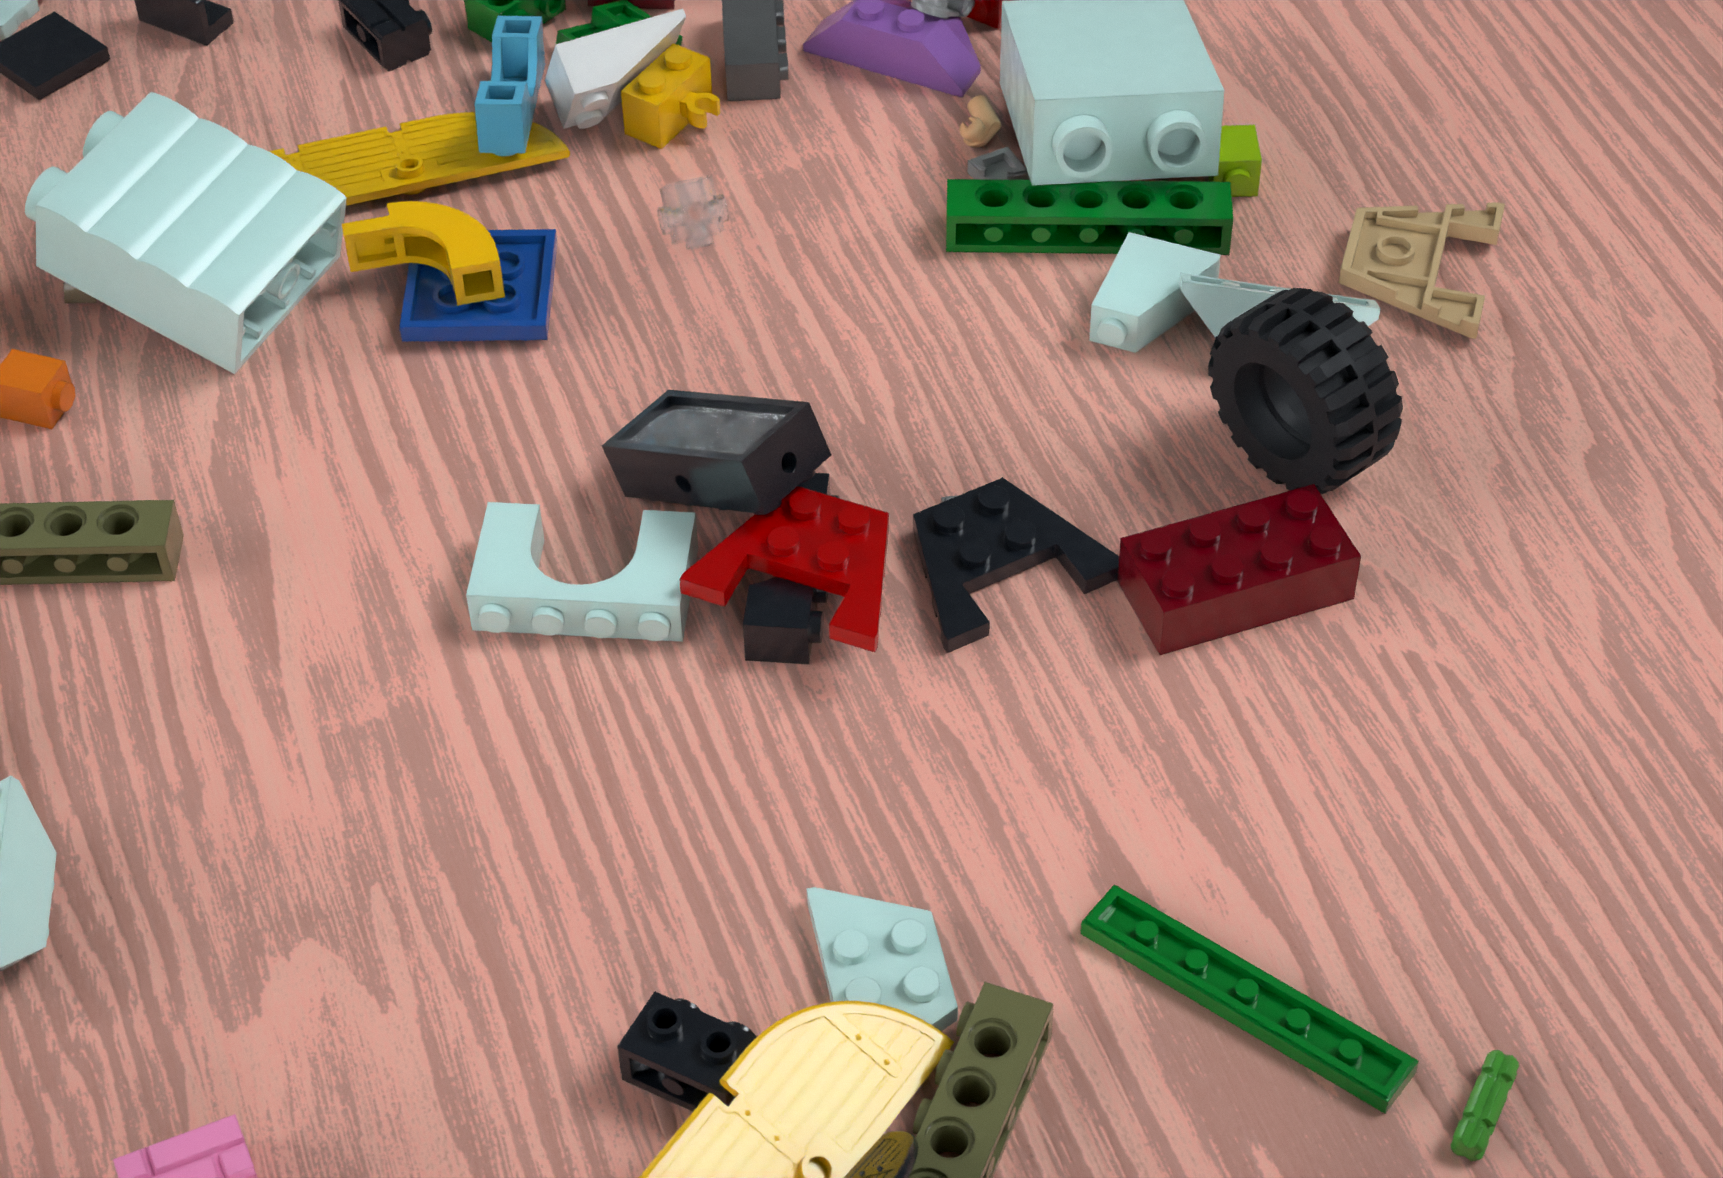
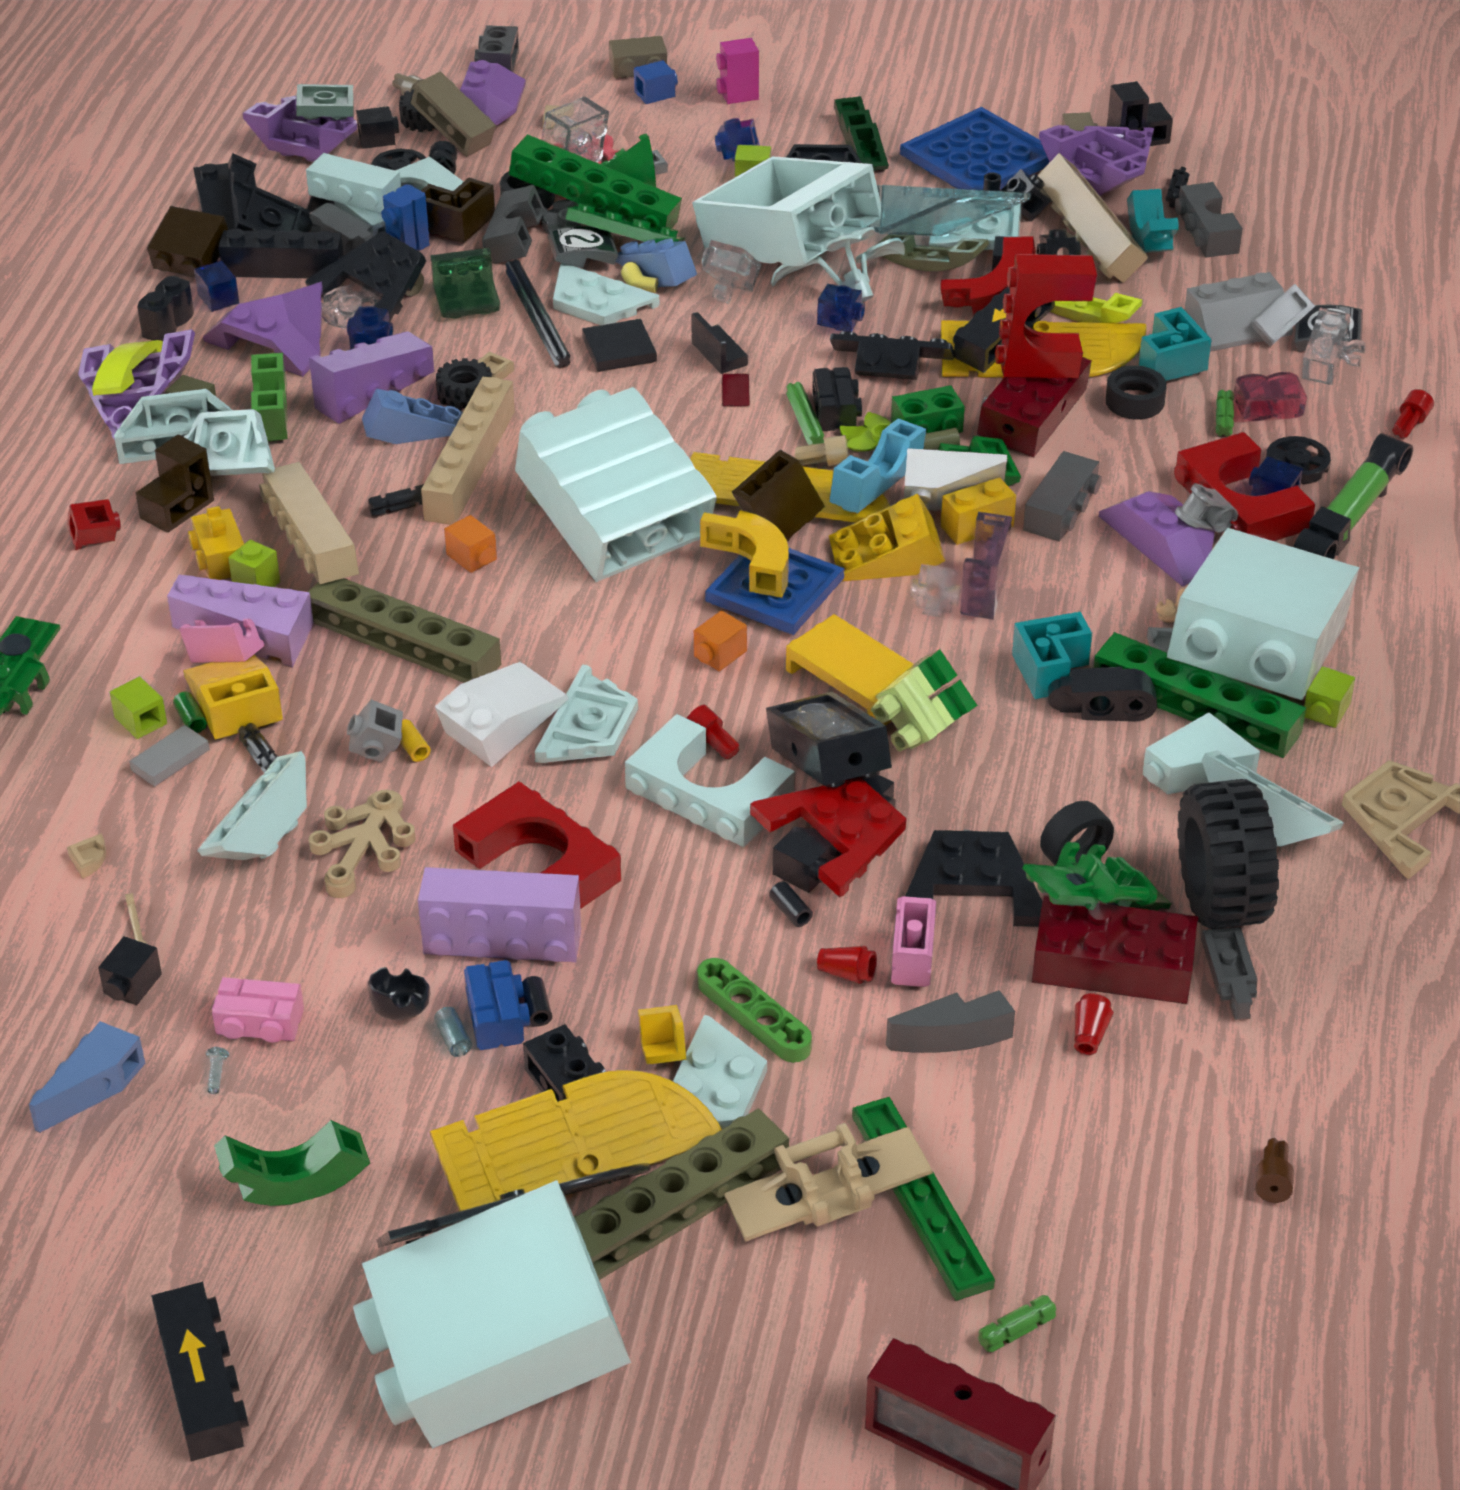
camera: 30 degrees right, 5 degrees down
(85, 700) = (375, 731): none -> light grey brick
(136, 691) = (414, 742): none -> yellow piece
(162, 803) = (380, 808): none -> tan plant
(237, 599) = (498, 710): none -> white slope
(241, 58) = (735, 390): none -> dark red sticker
(357, 56) = (805, 413): none -> bright green axle
(364, 561) = (589, 722): none -> light aqua wing
(377, 728) = (525, 817): none -> red arch
(380, 1058) = (398, 995): none -> black hair
(421, 160) = (780, 494): none -> dark brown brick
(430, 89) = (832, 451): none -> tan piece
(450, 879) = (500, 914): none -> lavender brick
(459, 52) = (865, 437): none -> lime plate
(464, 384) = (720, 640): none -> orange brick
(487, 1074) = (453, 1031): none -> clear light blue piece
(523, 1008) = (495, 1005): none -> blue brick
(554, 511) = (715, 734): none -> red piece
(557, 20) = (947, 436): none -> olive piece
(570, 976) = (537, 1001): none -> black piece
(585, 176) = (888, 543): none -> yellow slope
(664, 345) = (846, 660): none -> yellow panel
(737, 147) = (987, 570): none -> panel
(780, 942) = (662, 1034): none -> yellow panel
(787, 349) = (910, 708): none -> yellowish green hips
(803, 689) = (790, 904): none -> black piece
(856, 859) = (759, 1005): none -> bright green beam
(887, 234) = (1049, 648): none -> teal brick
(934, 733) = (849, 963): none -> red cone
(985, 260) = (1105, 694): none -> black piece
(1003, 668) = (913, 941): none -> bright pink brick
(1095, 447) = (1070, 822): none -> black tyre
(1122, 753) = (952, 1024): none -> dark grey slope
(1148, 1053) = (831, 1194): none -> tan piece
(1178, 492) = (1093, 881): none -> green piece
(1276, 672) = (1092, 1019): none -> red cone
(1384, 534) = (1231, 968): none -> dark grey hinge
(1621, 760) = (1275, 1173): none -> reddish brown piece

